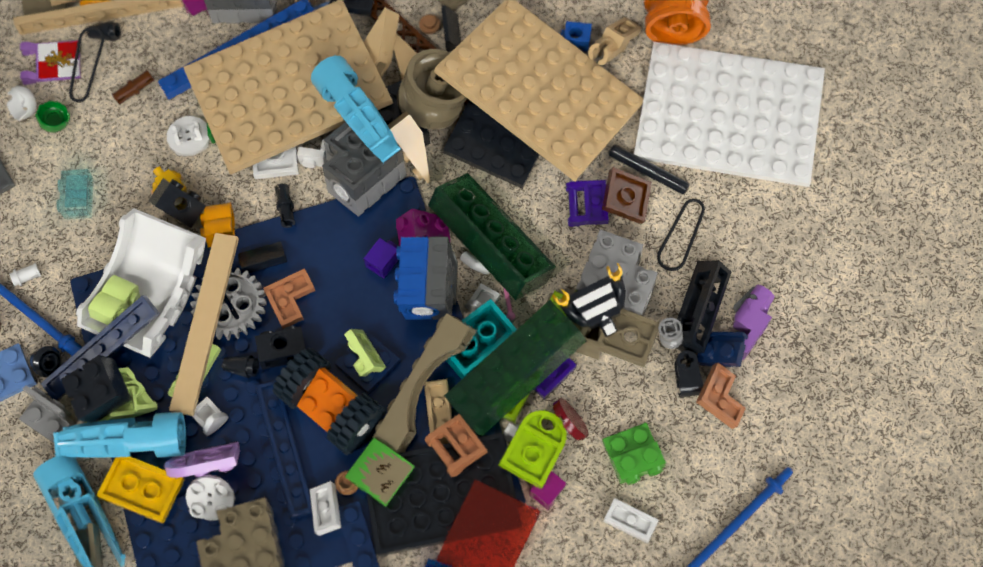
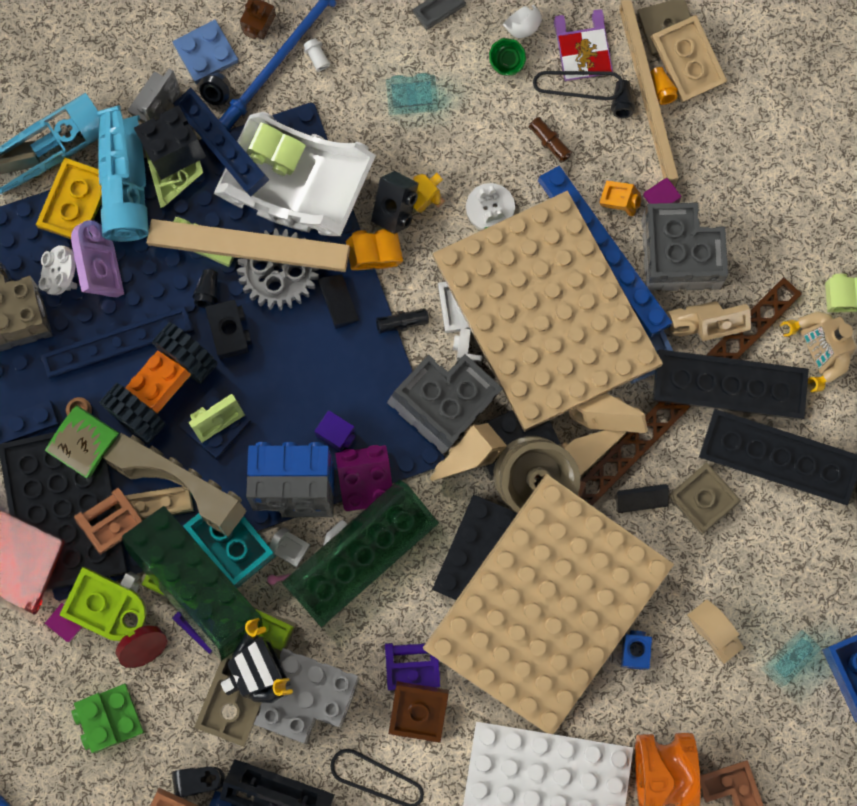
camera: 85 degrees right, 10 degrees up
(191, 35) = (621, 197): none -> light orange bracket
(209, 416) = (152, 262): white tile -> none
(283, 296) = (288, 326): nougat plate -> none
(325, 508) = (48, 388): white plate -> none
(337, 82) = (495, 385): medium azure piece -> none
(429, 24) = (649, 472): medium nougat plate -> none
(614, 40) = (630, 698): tan plate -> none
(631, 520) = (32, 714): white plate -> none
(649, 169) = (459, 740): black axle -> none
(672, 338) = (233, 762): light grey wheel -> none

